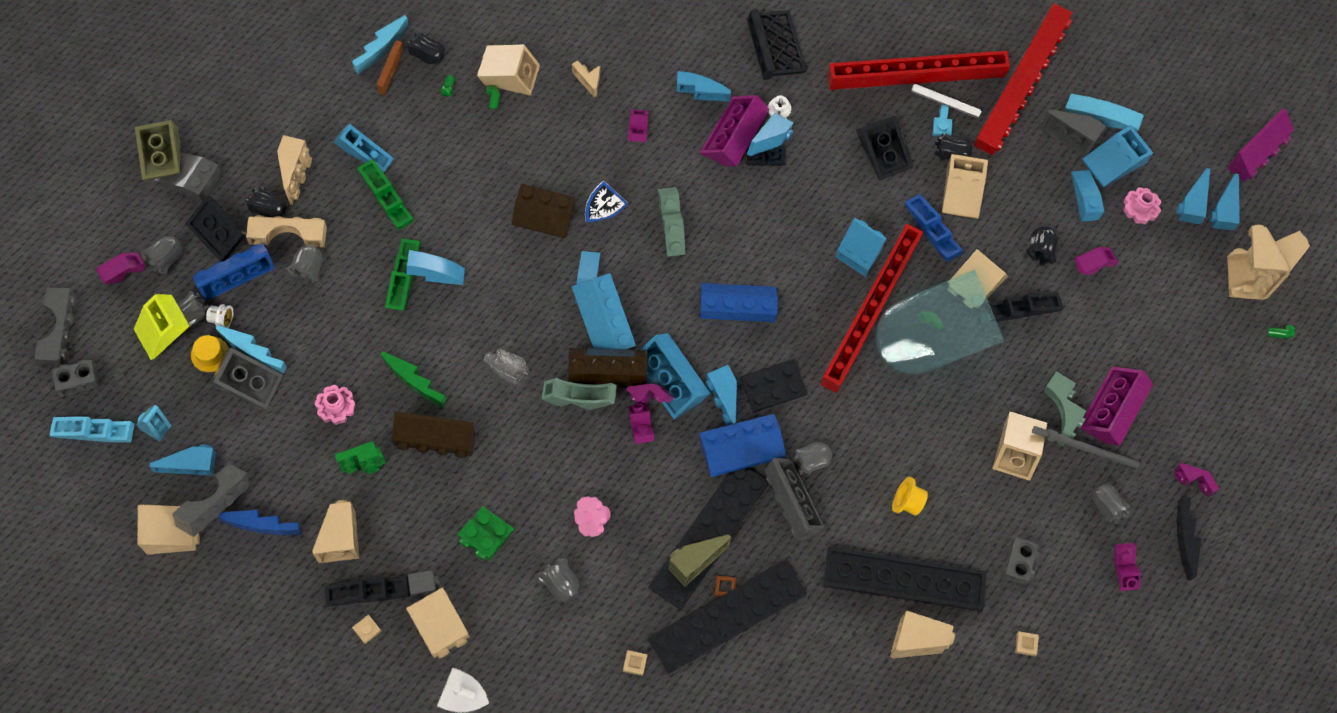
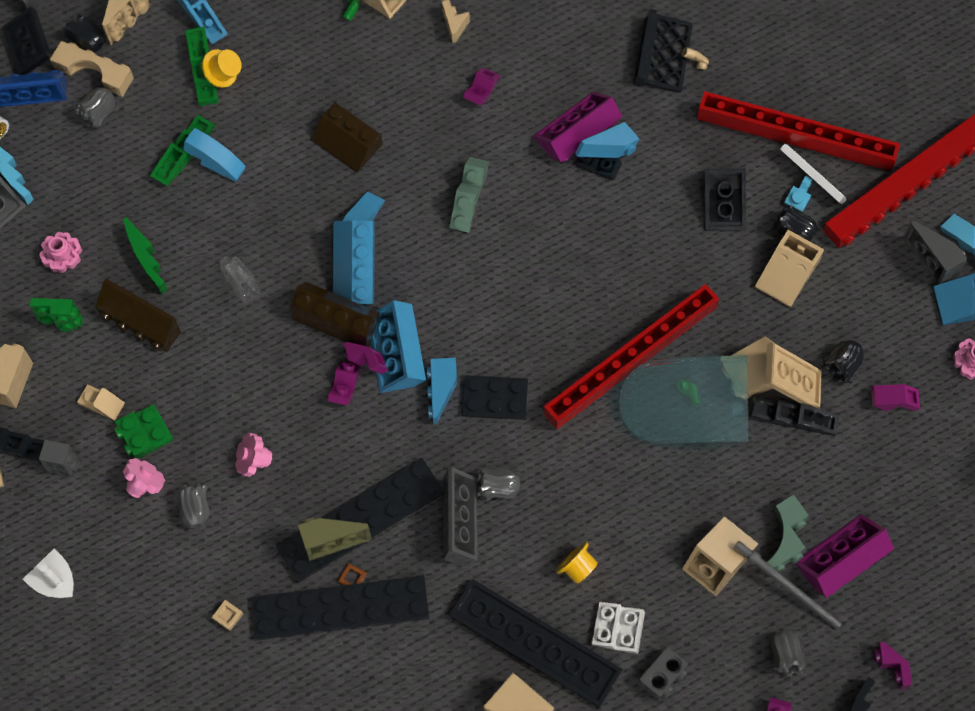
camera: 30 degrees right, 0 degrees up
(405, 188) = (221, 67): none -> yellow piece
(436, 523) = (101, 402): none -> tan slope
(438, 623) = (56, 499): tan slope -> none
(505, 574) = (142, 478): none -> bright pink plant
(585, 396) = (298, 333): sand green arch -> none
(603, 203) = (409, 151): shield -> none
(702, 87) = (563, 70): dark azure slope -> none
(738, 302) = (498, 300): blue slope -> none
(742, 445) = (432, 443): blue slope -> none
(785, 108) = (639, 122): white piece -> none
(802, 36) = (696, 56): none -> tan arm
(861, 247) = (646, 290): dark azure slope -> none
(933, 228) = (738, 300): blue slope -> none
(965, 538) = (618, 627): none -> white slope
(1013, 273) = (793, 376): none -> tan tile
(1087, 196) = (919, 326): dark azure slope -> none

